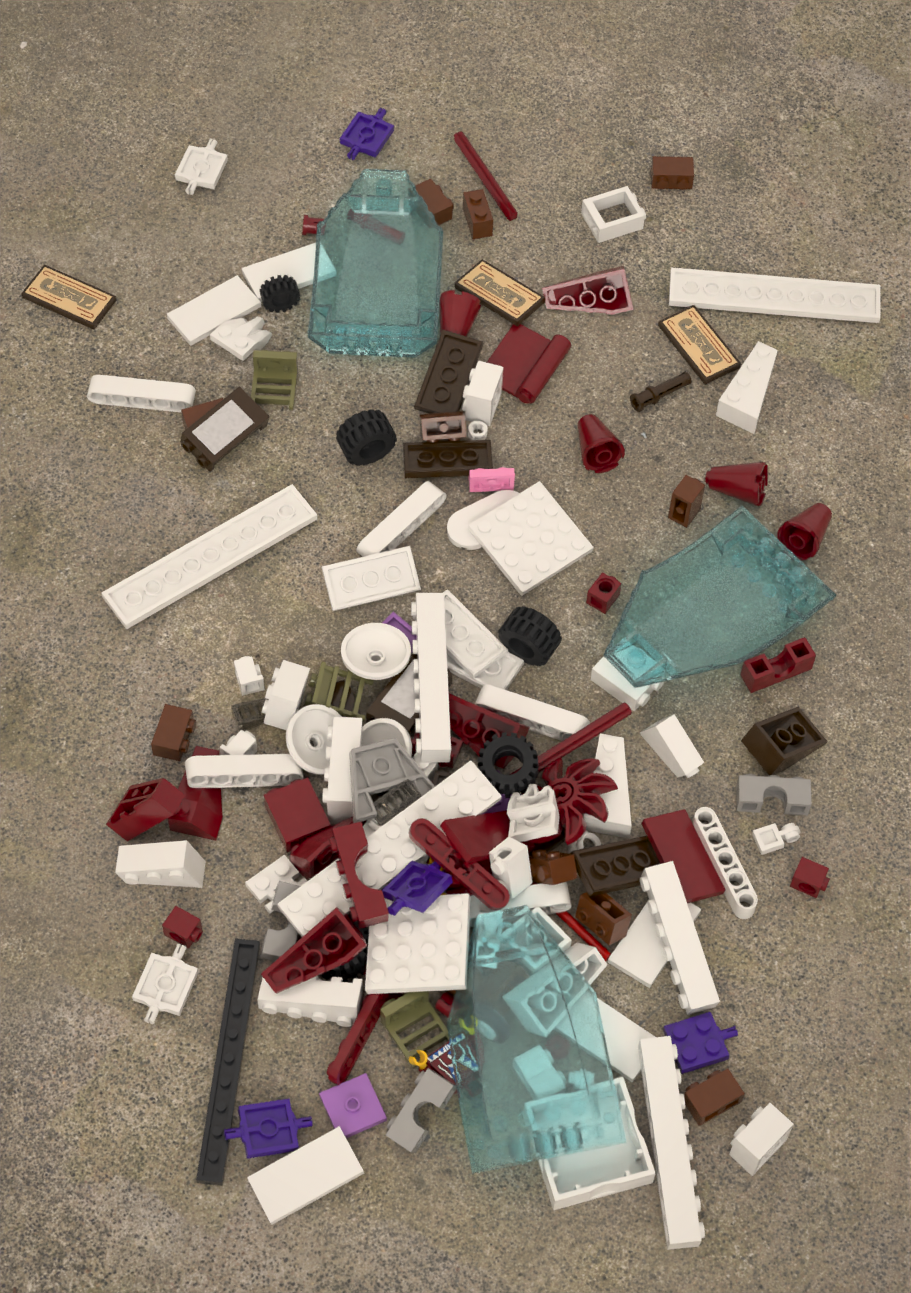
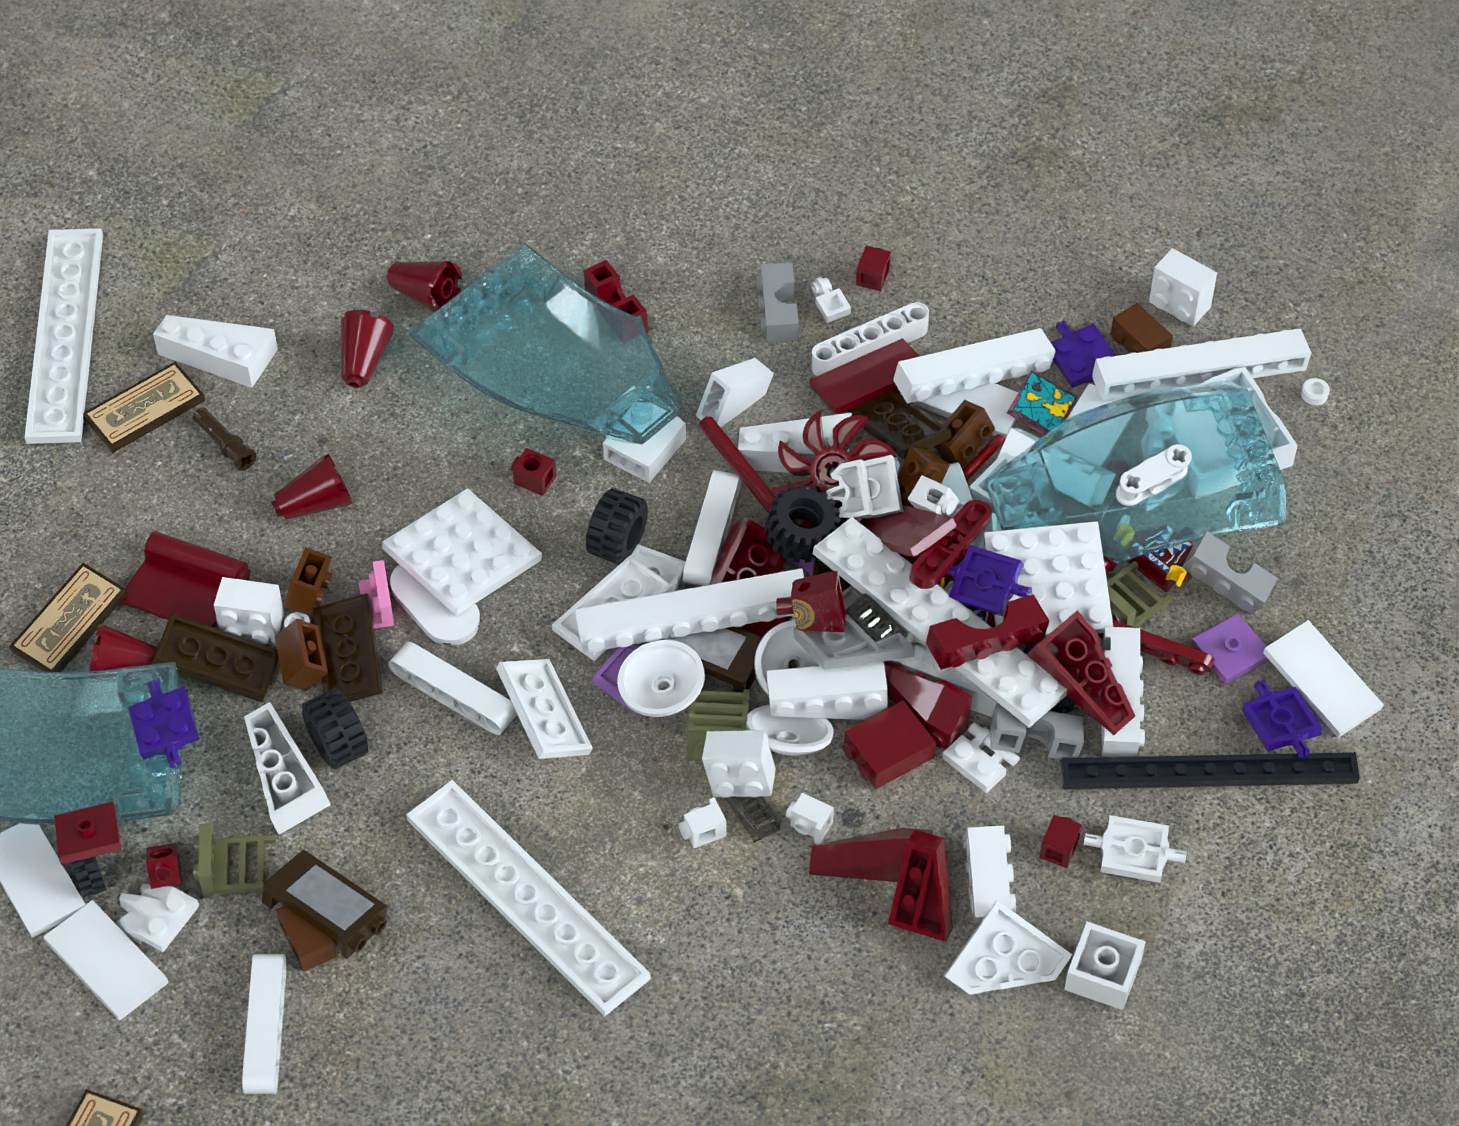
camera: 95 degrees left, 5 degrees down
(57, 935) = (1104, 965): none -> white brick
(86, 867) = (1006, 955): none -> white plate
(173, 732) = (799, 894): reddish brown brick -> none
(241, 770) = (847, 801): white beam -> none
(275, 337) = (163, 865): none -> dark red brick
(295, 284) = (87, 832): none -> dark red plate
(326, 412) = (286, 777): none -> white wedge
(379, 329) = (163, 723): none -> dark purple plate
(407, 739) = (816, 603): none -> dark red torso
(495, 1029) = (1153, 475): none -> white piece
(507, 431) = (307, 582): none -> reddish brown brick
(597, 292) = (65, 511): wedge -> none
(636, 1249) = (1315, 391): none -> white tile
(637, 994) = (1041, 404): none -> tile
(686, 501) = (399, 393): reddish brown brick -> none
(783, 740) = (710, 297): dark brown slope -> none

